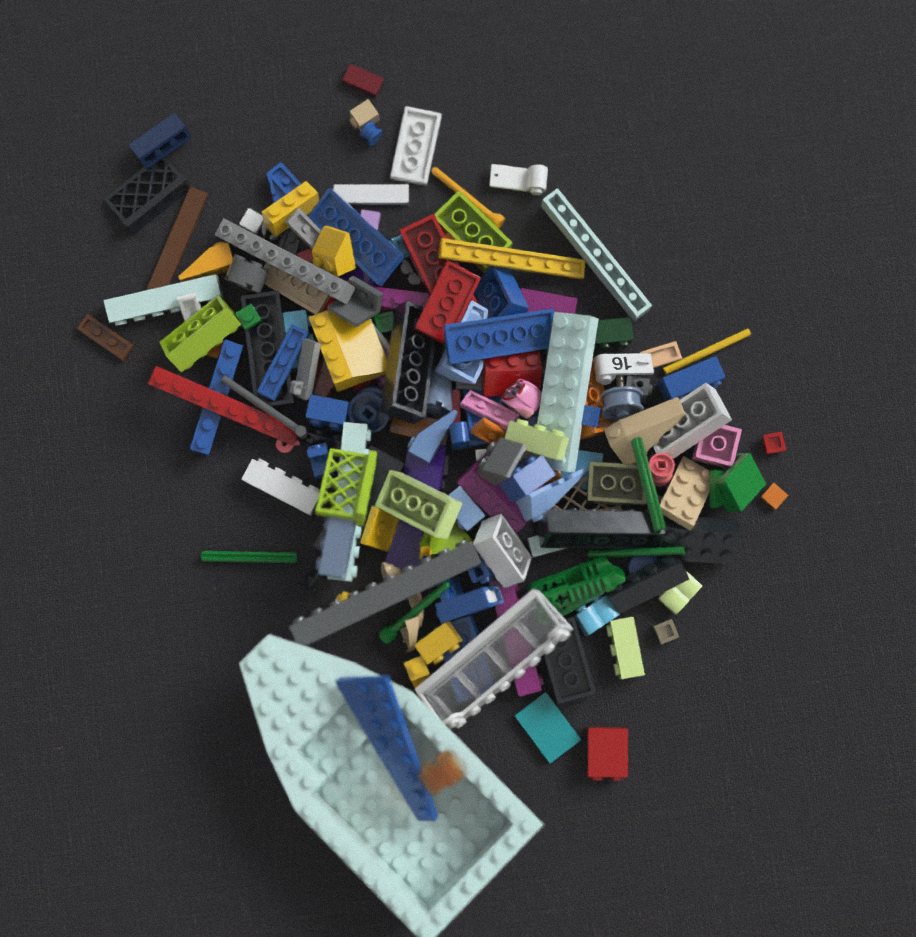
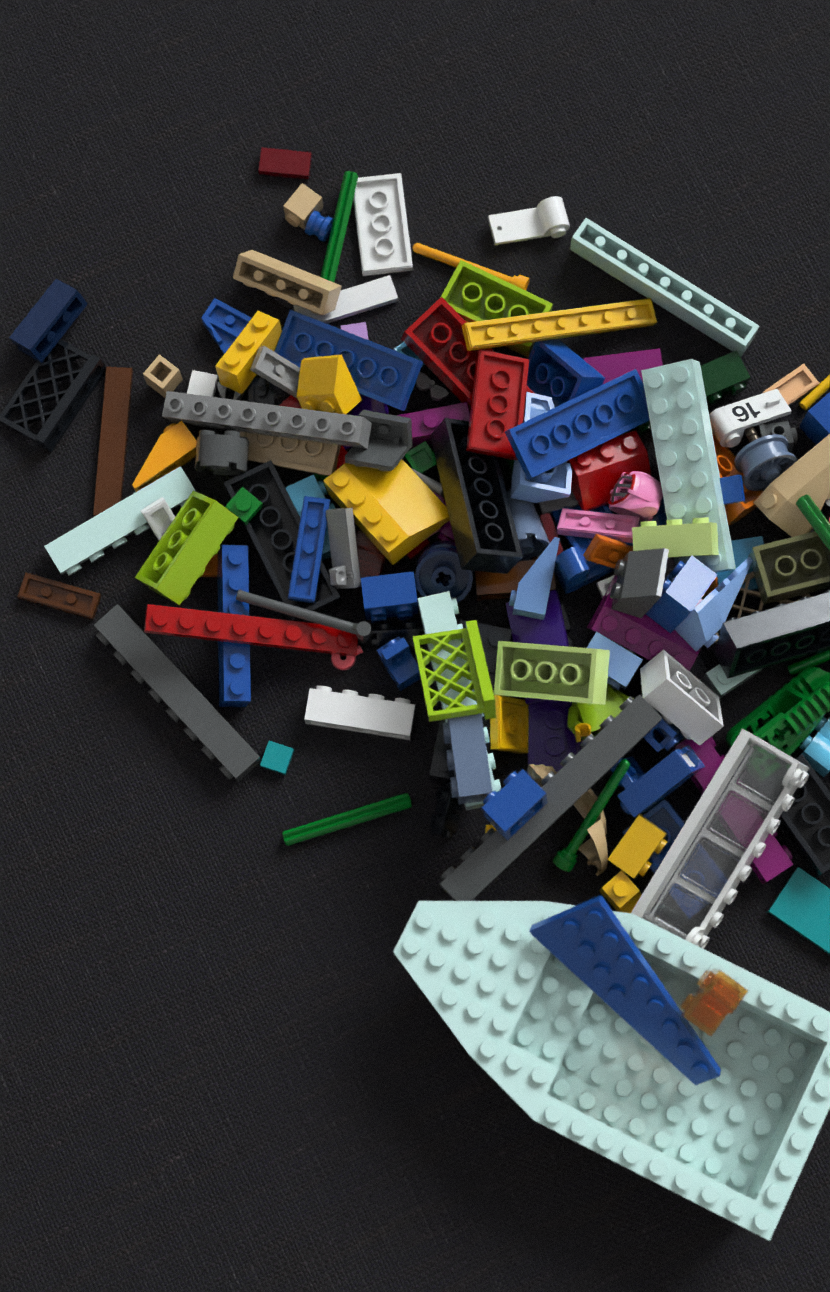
camera: 15 degrees left, 5 degrees down
(162, 431) = (178, 693): none -> dark grey brick
(216, 498) = (277, 757): none -> teal tile
(225, 206) = (162, 376): none -> tan brick
(333, 167) = (287, 282): none -> tan brick
(355, 590) = (514, 803): none -> blue brick
(382, 142) = (339, 226): none -> green axle

